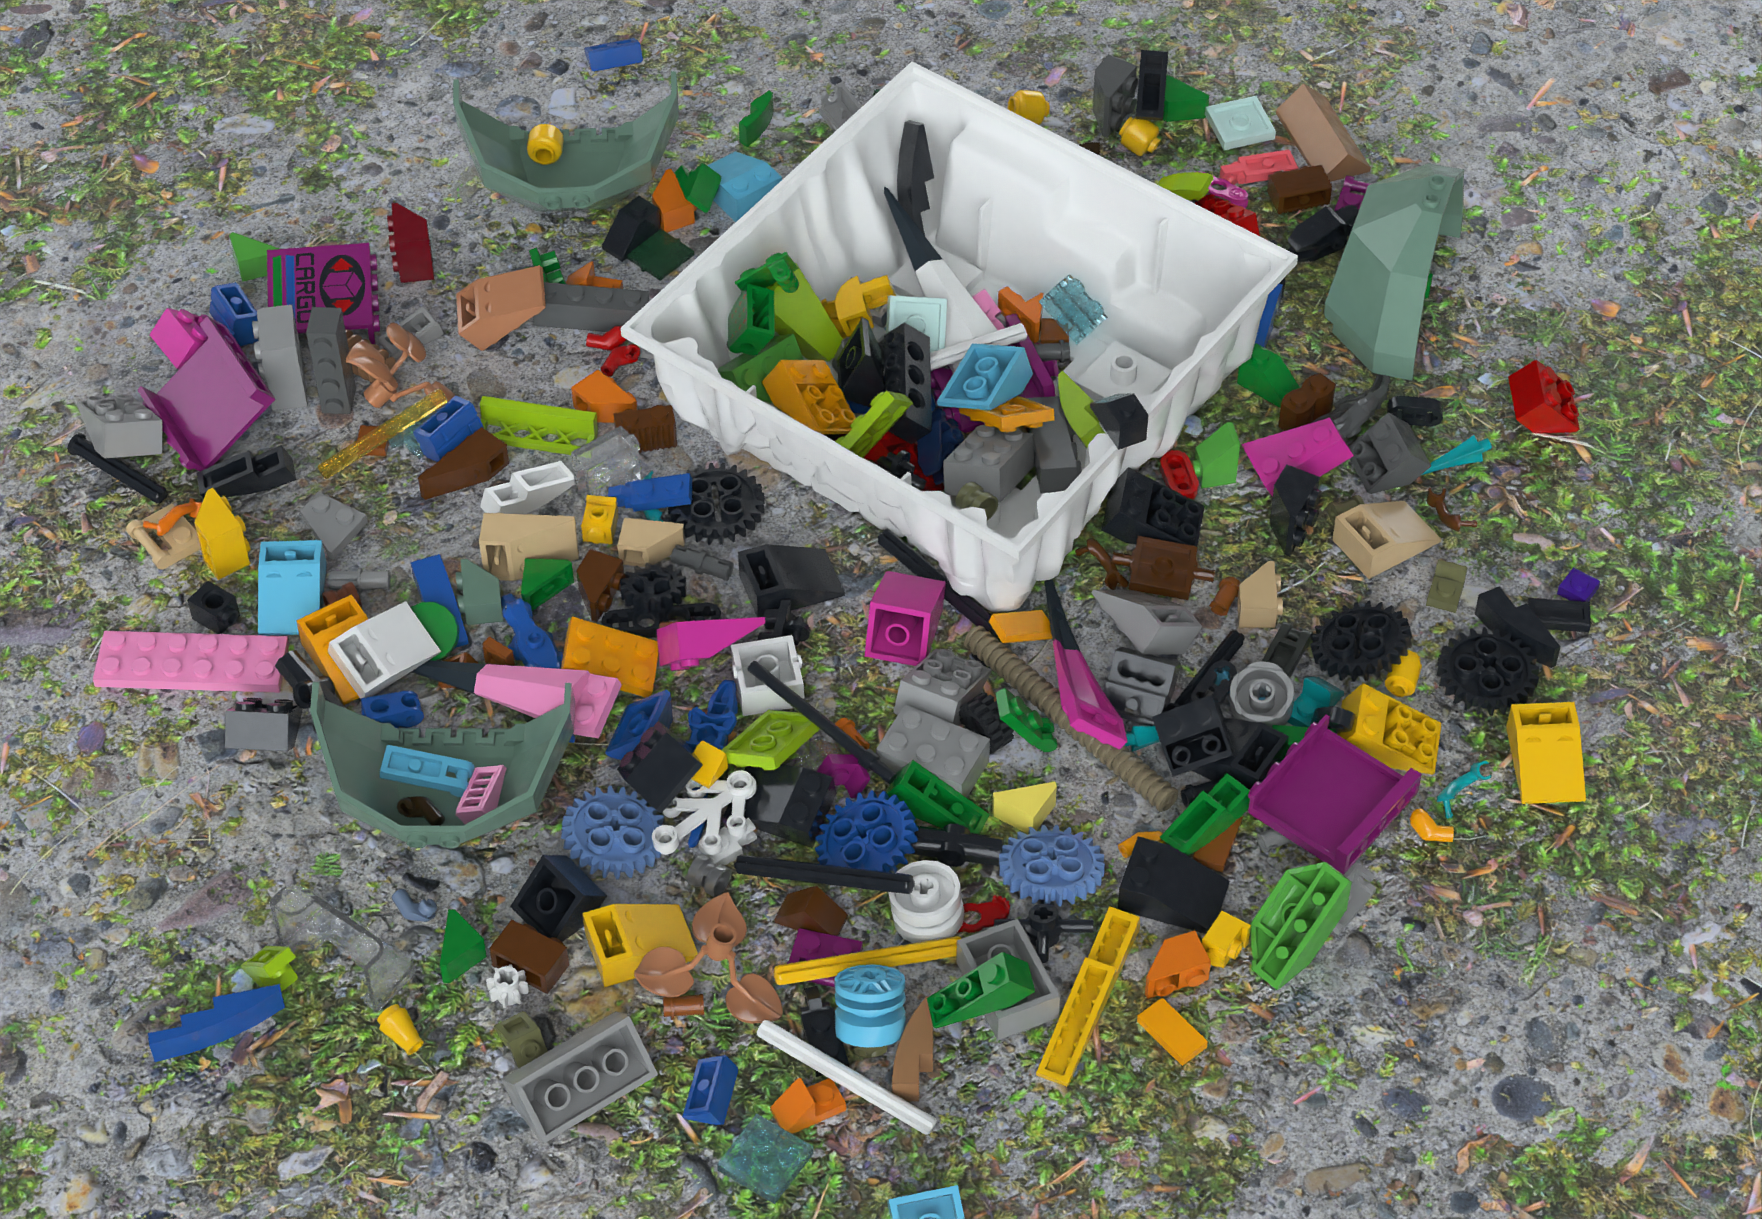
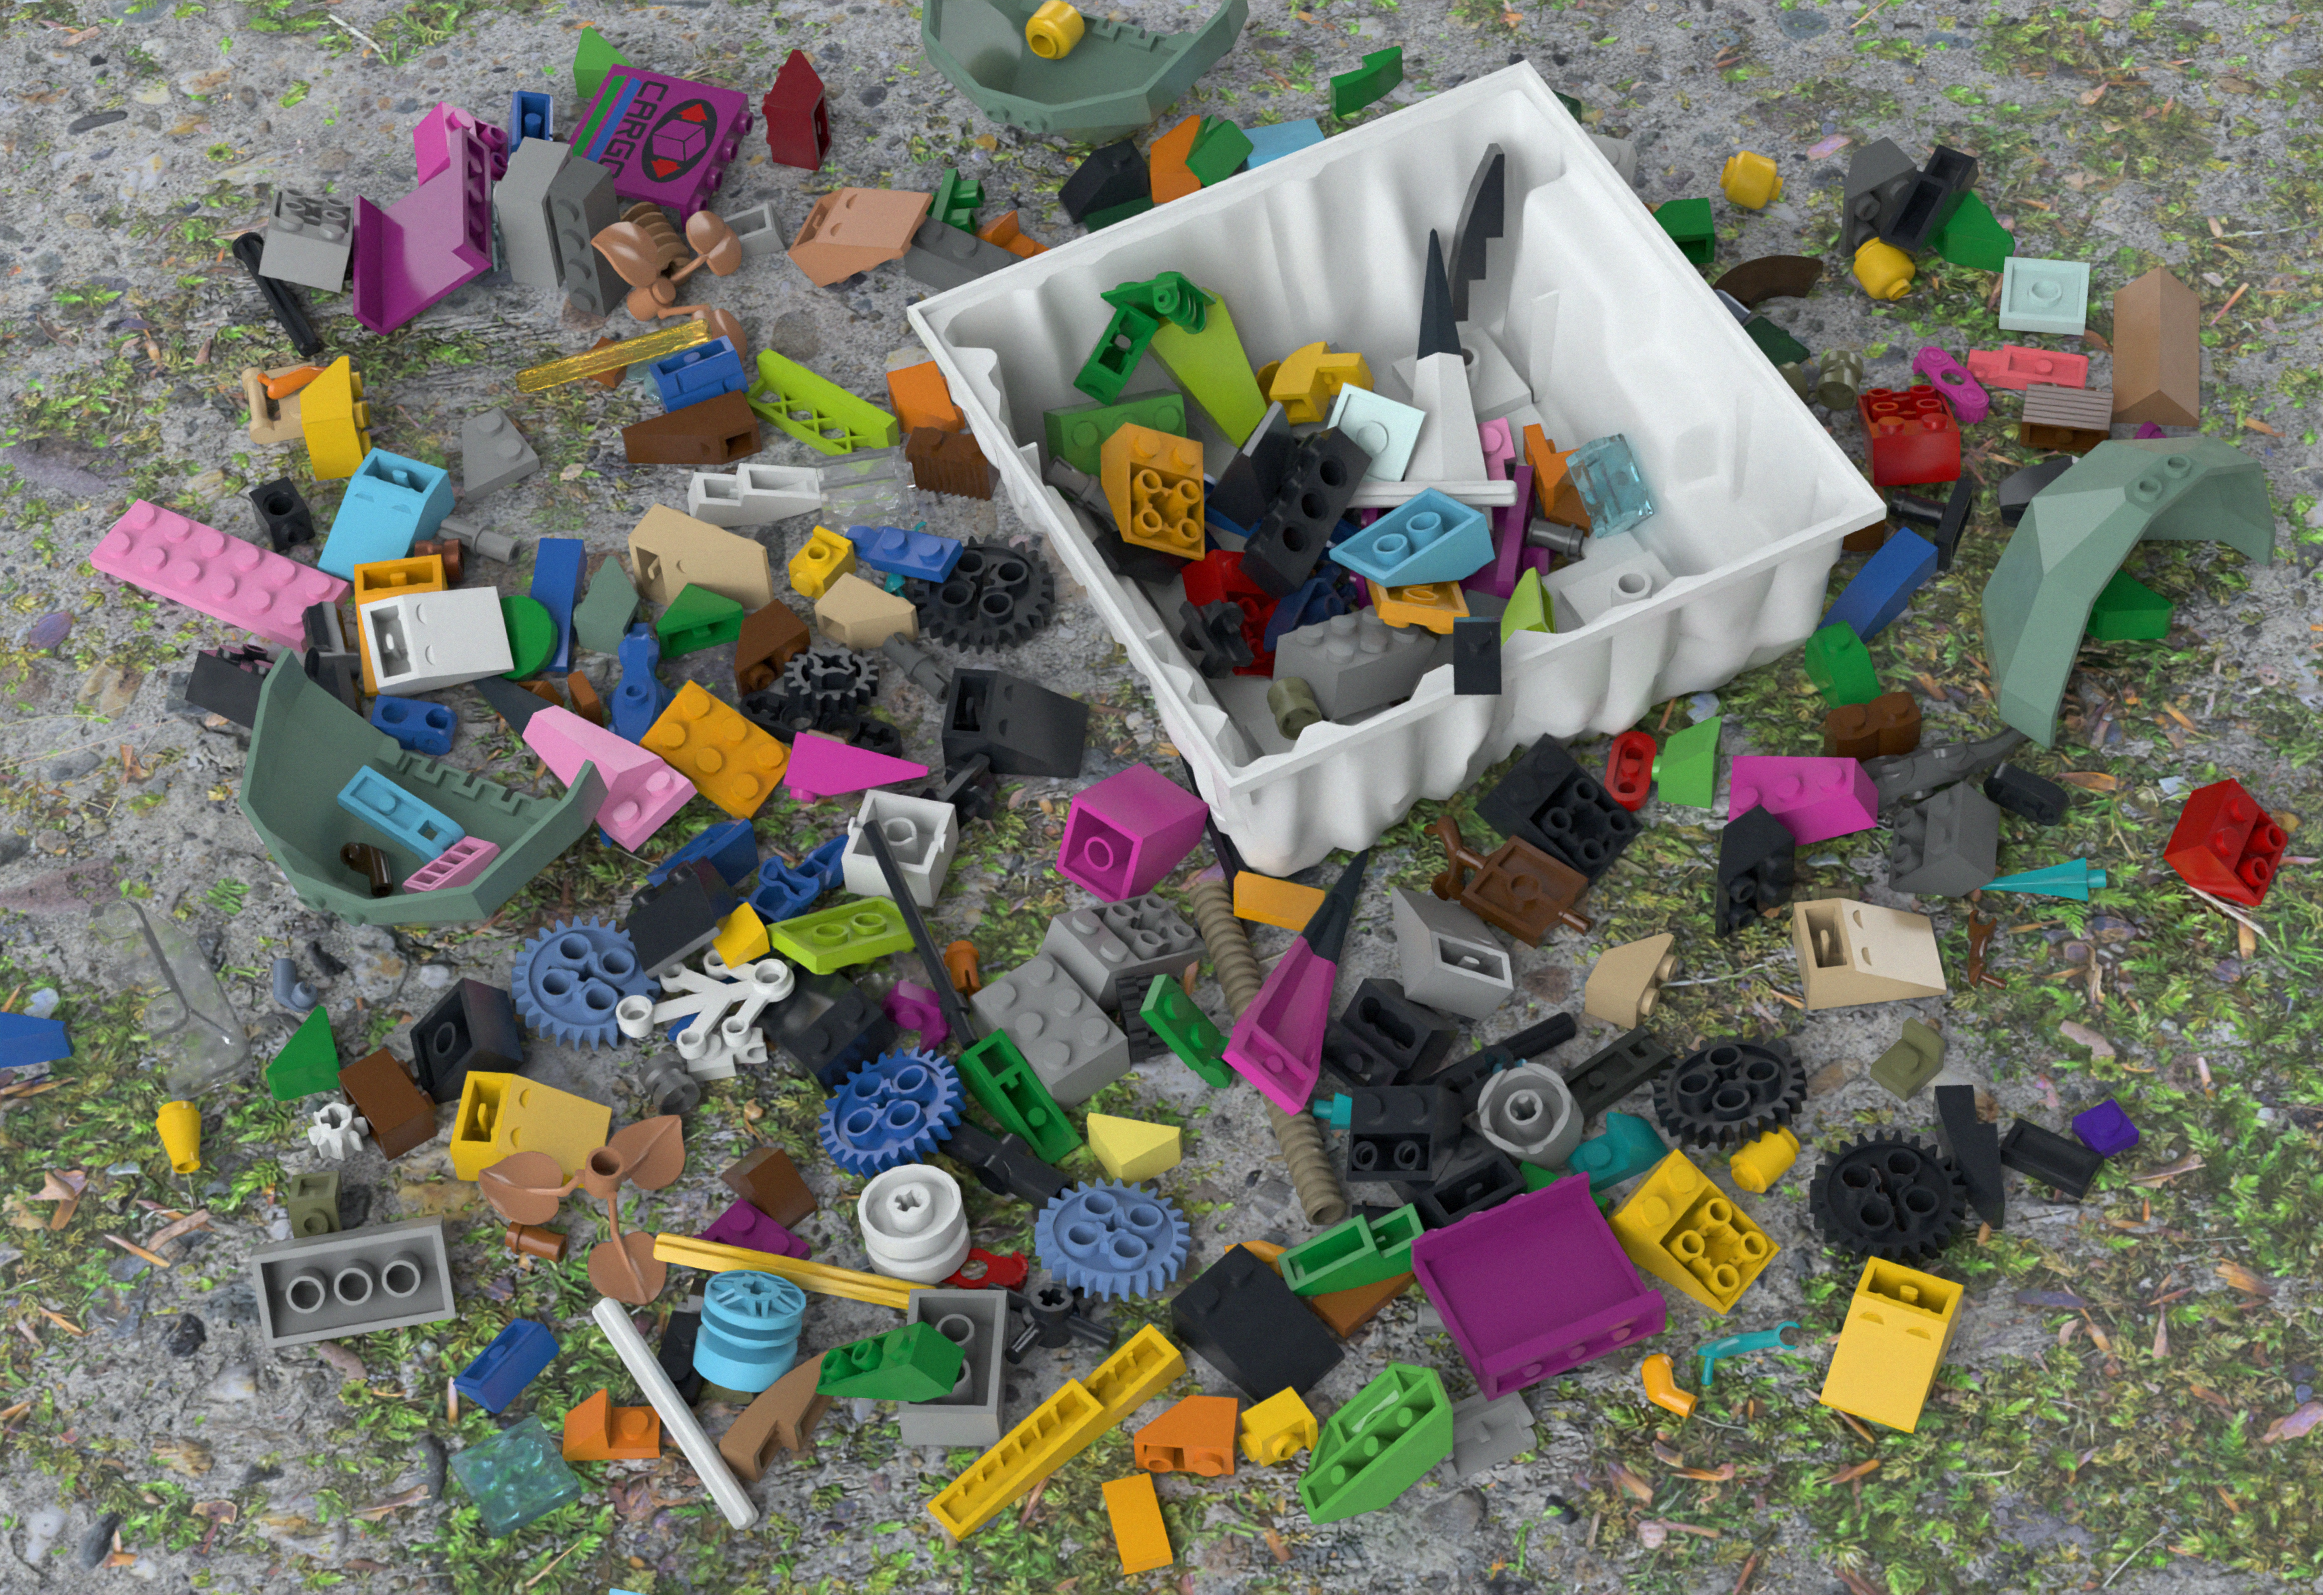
camera: 30 degrees right, 0 degrees up
(248, 473) = (426, 354): black slope -> none
(271, 967) = (78, 1003): lime slope -> none
(824, 874) = (804, 1138): black axle -> none
(873, 425) = (1197, 558): lime plate -> none
(1187, 184) = (1898, 362): lime slope -> none
(1225, 596) = (1582, 963): dark orange pin -> none
(1340, 718) = (1610, 1184): black beam -> none

